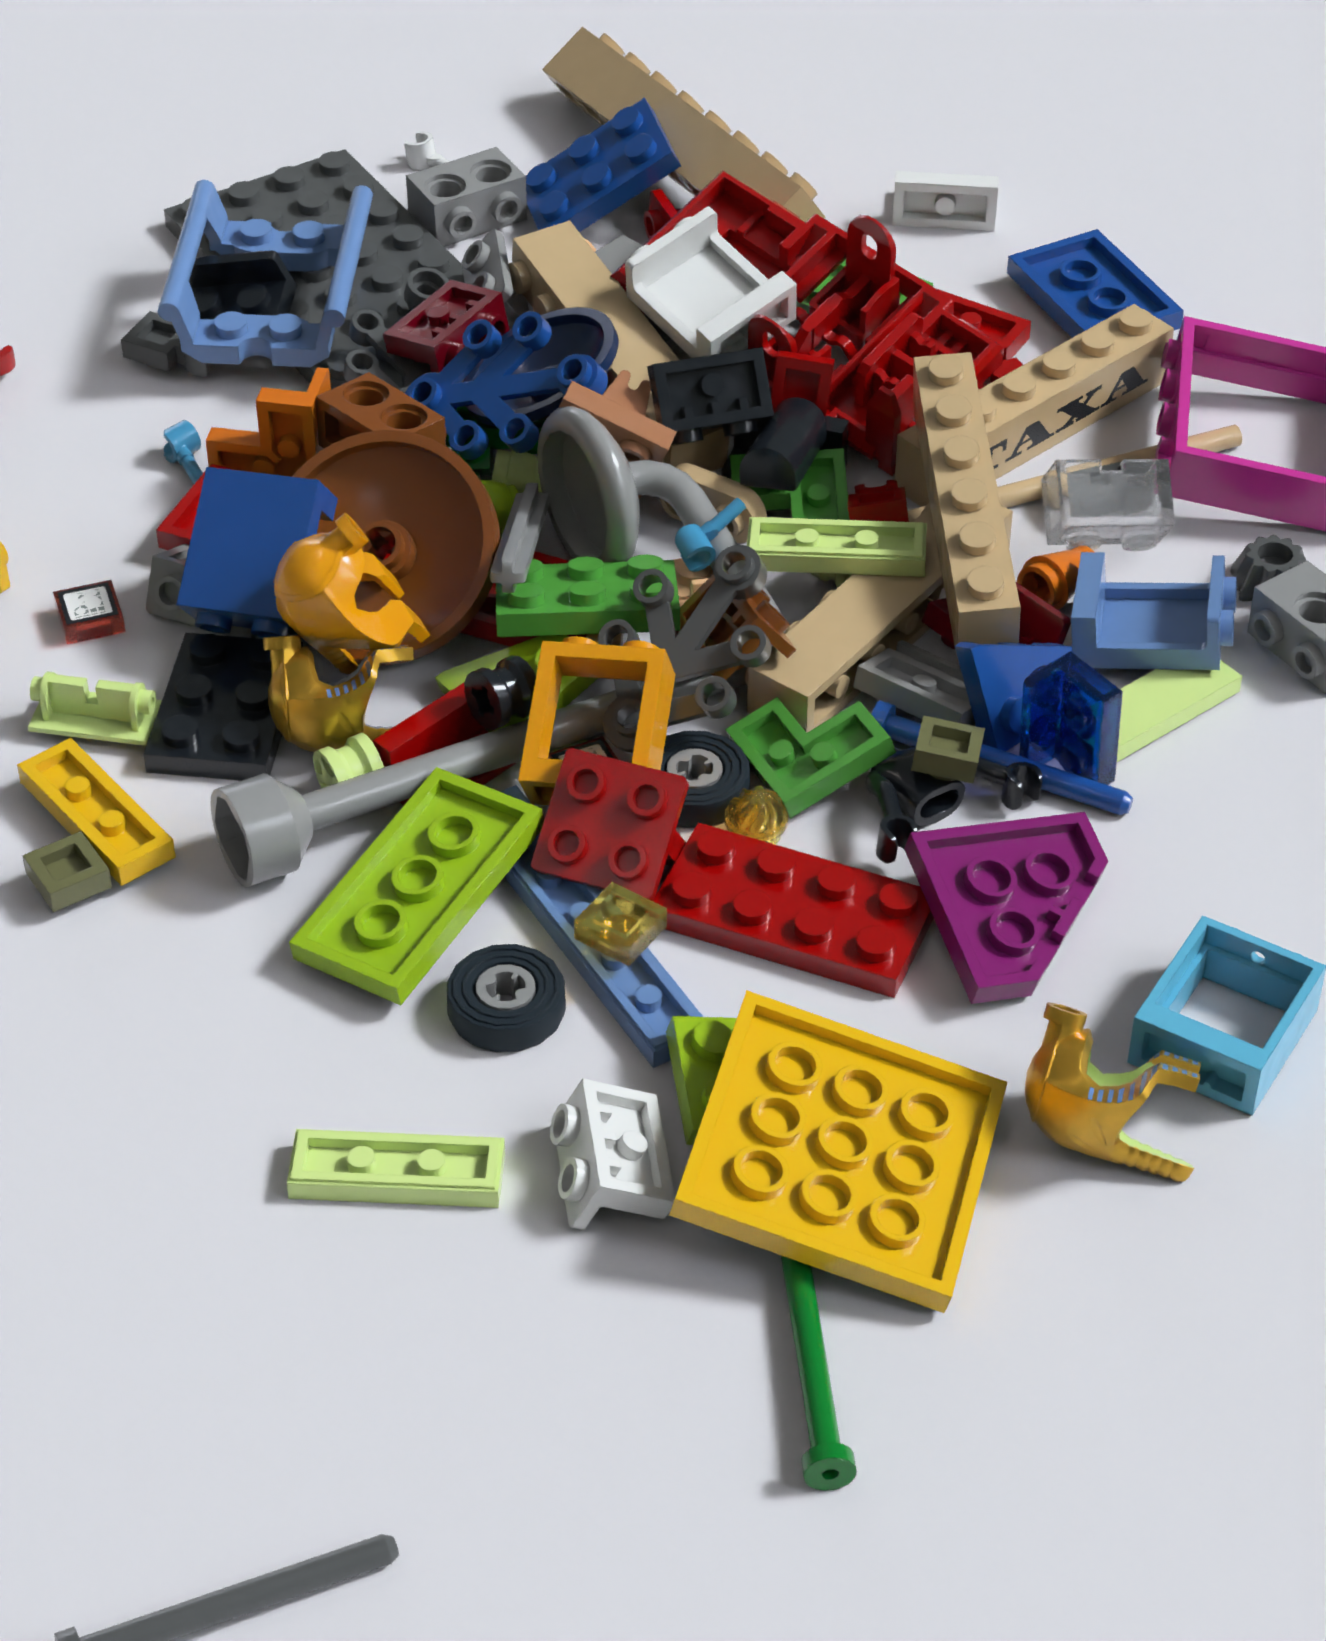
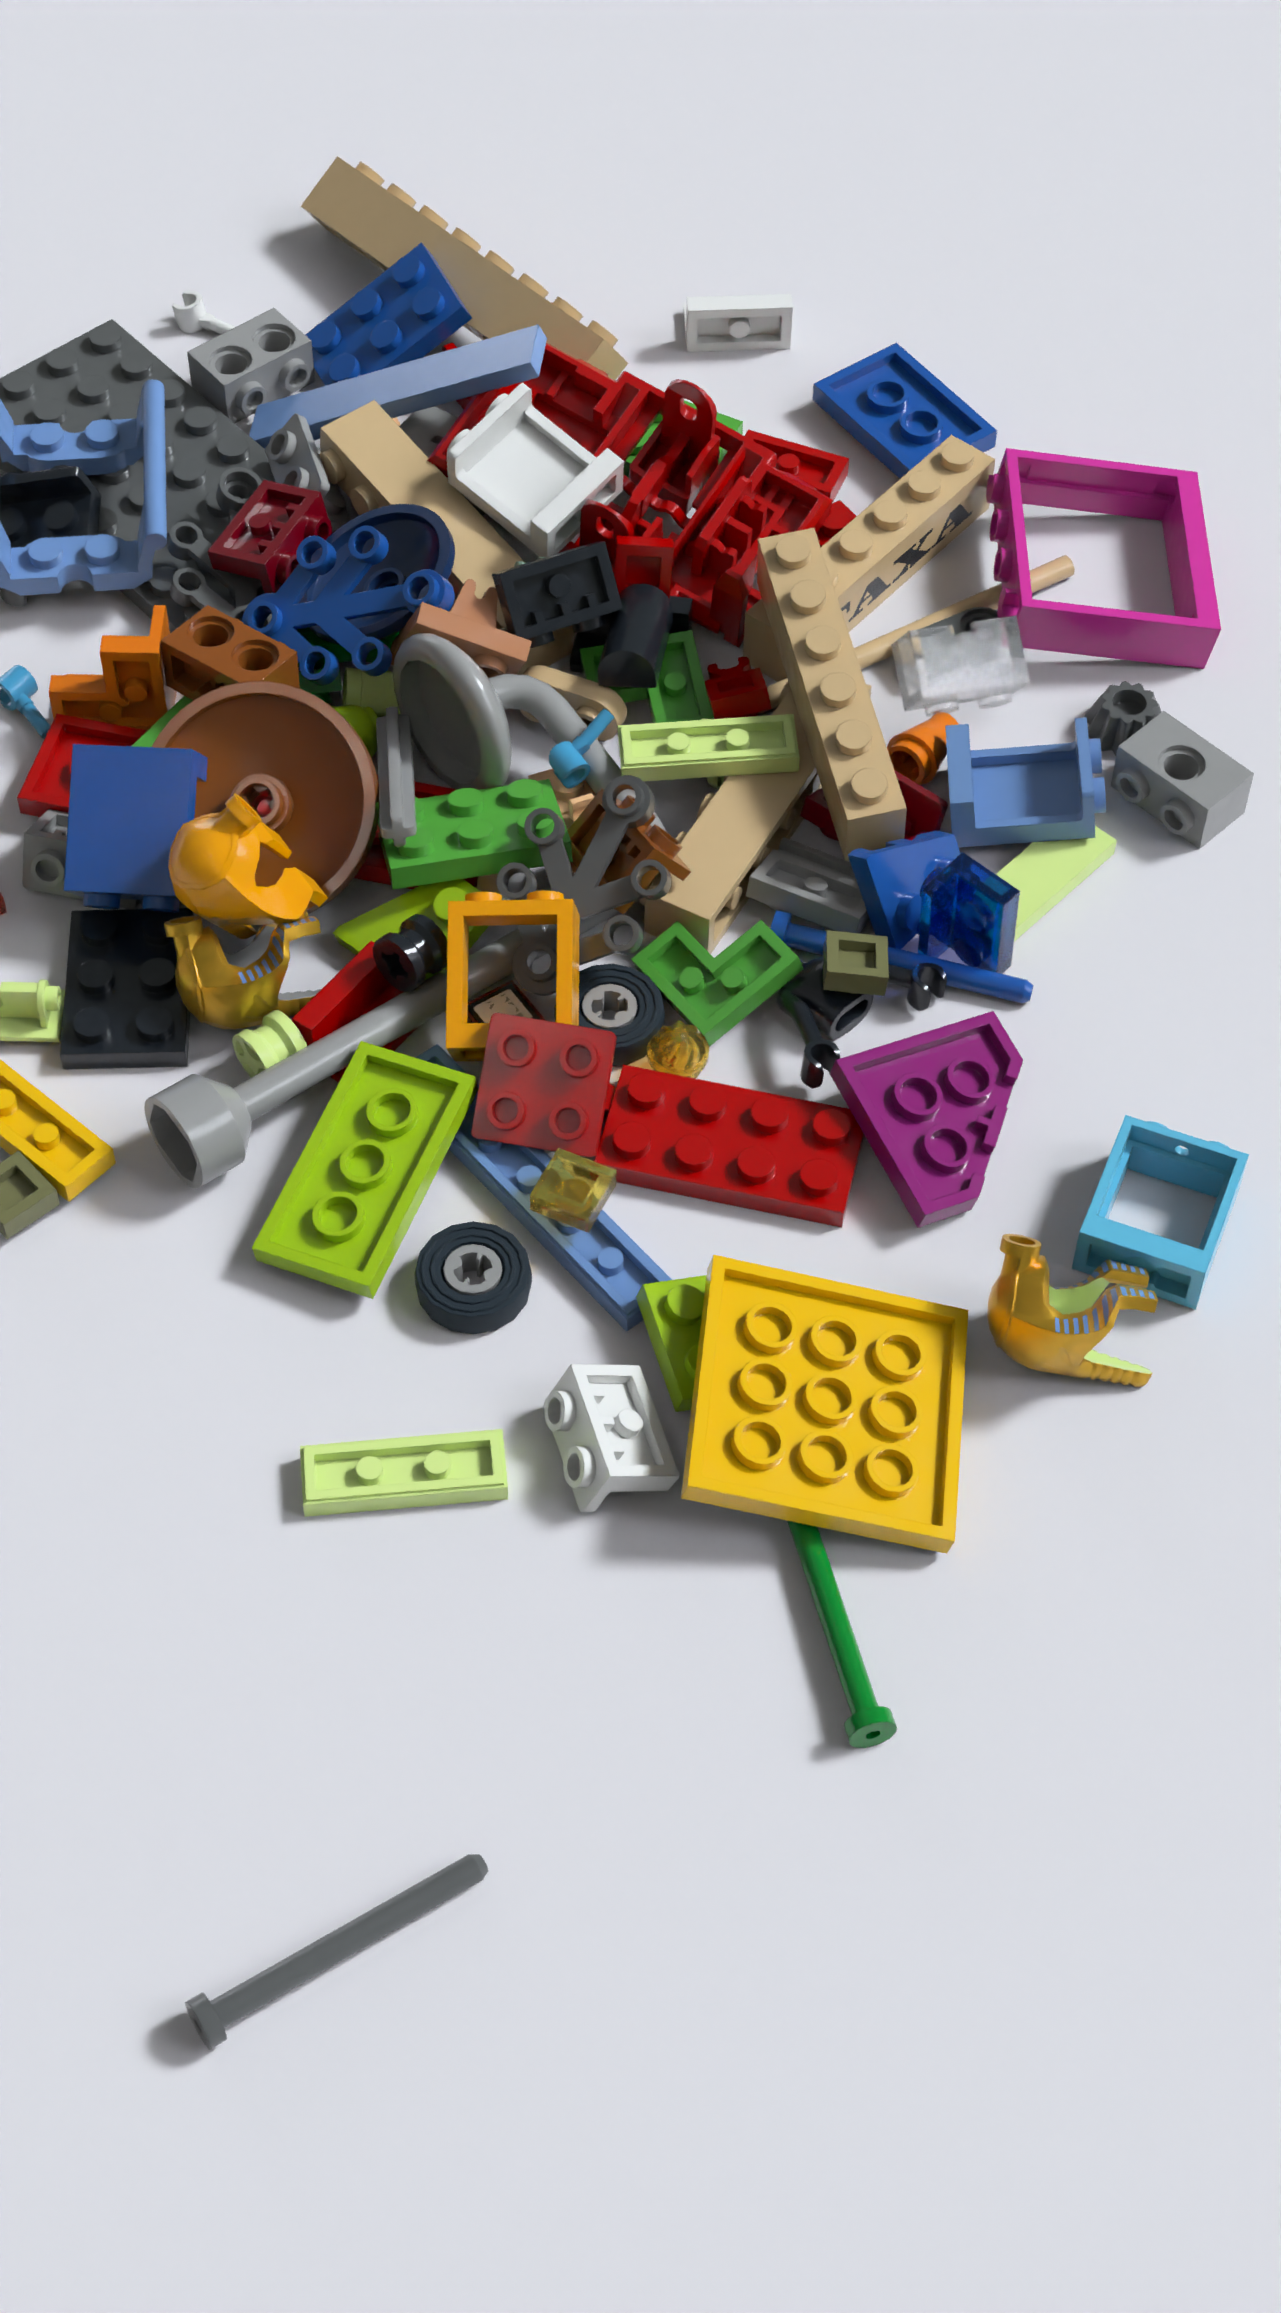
camera: 10 degrees left, 10 degrees up
(625, 208) = (413, 384): none -> medium blue tile

